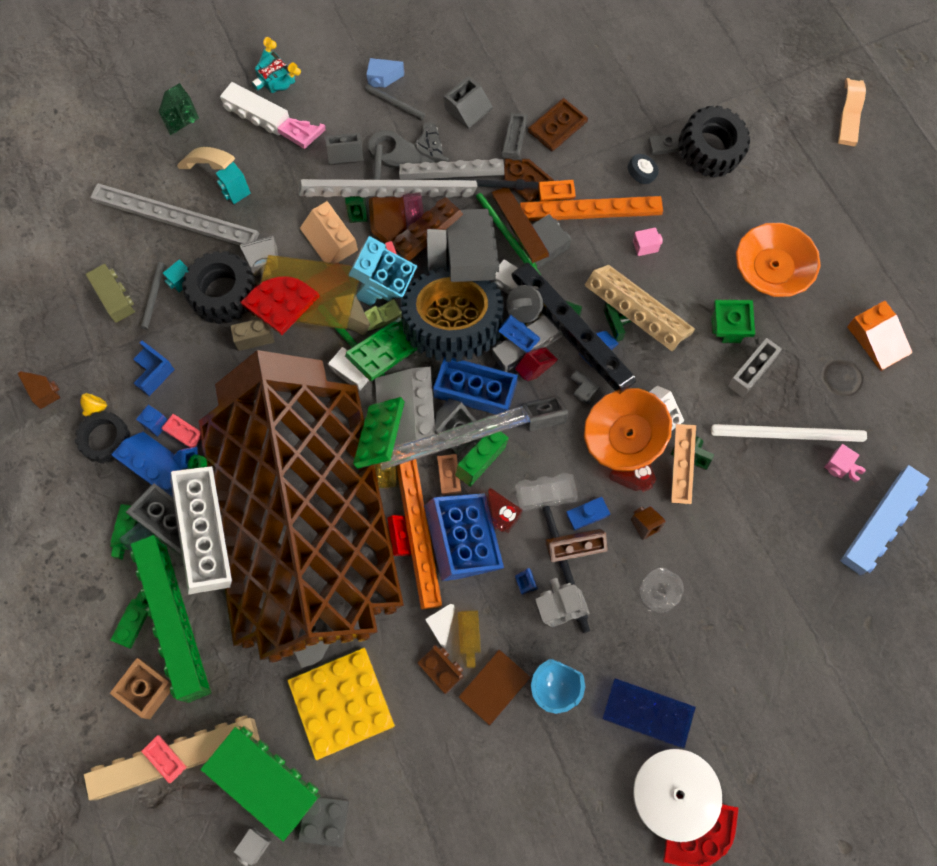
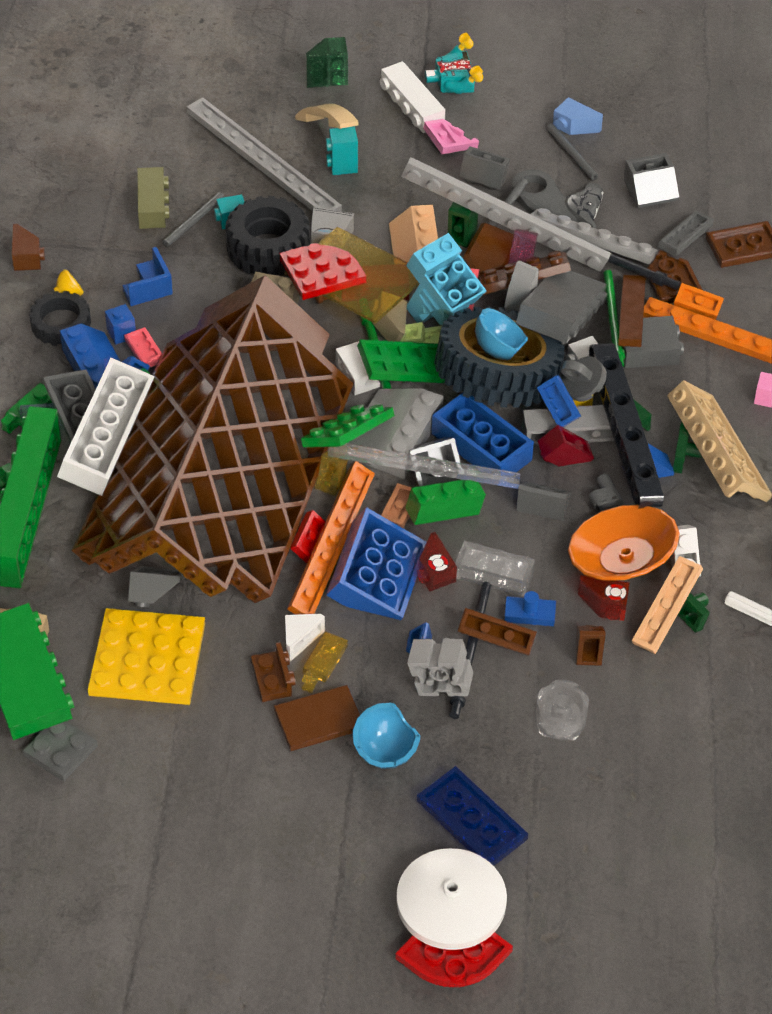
camera: 25 degrees right, 20 degrees down
(447, 299) = (498, 334): none -> dark azure cylinder

